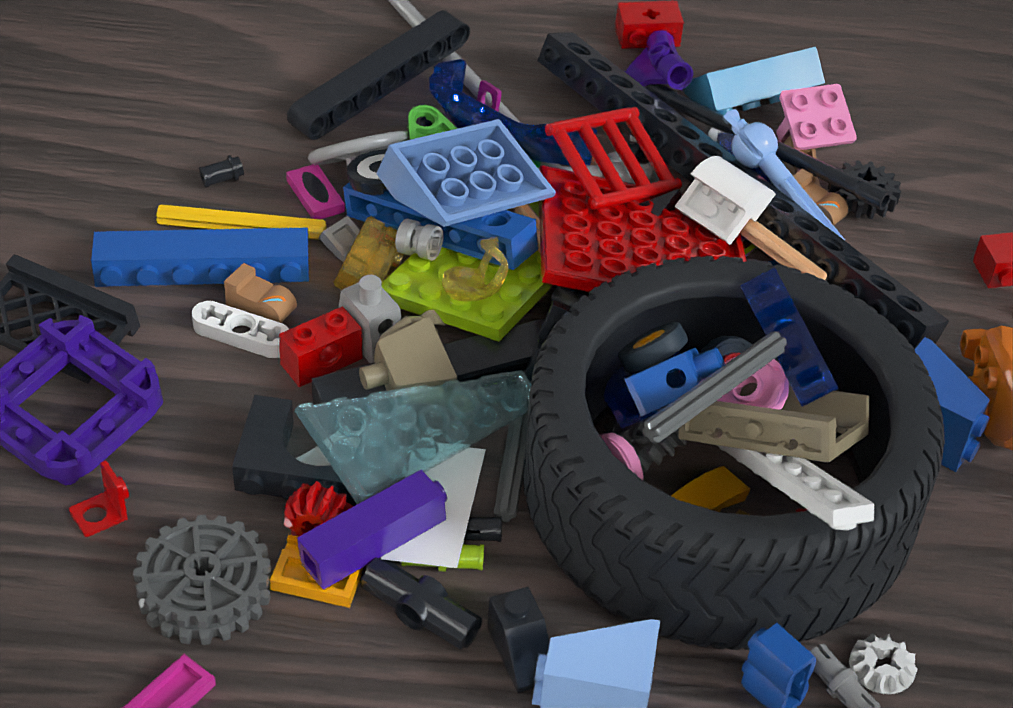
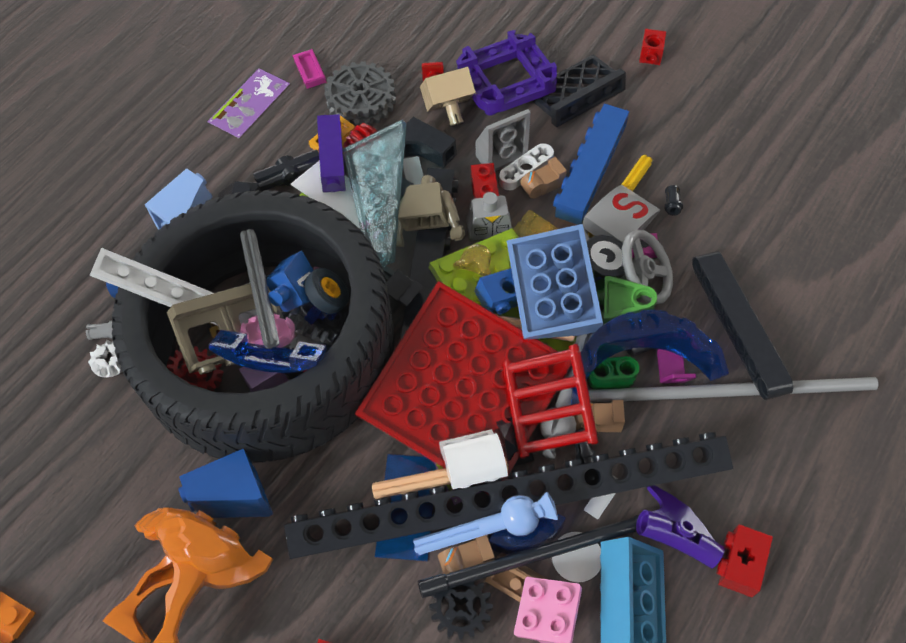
camera: 125 degrees right, 15 degrees up
(156, 439) = (448, 91): none -> tan brick
(230, 333) = (504, 140): none -> light grey slope
(293, 192) = (619, 214): none -> light grey slope

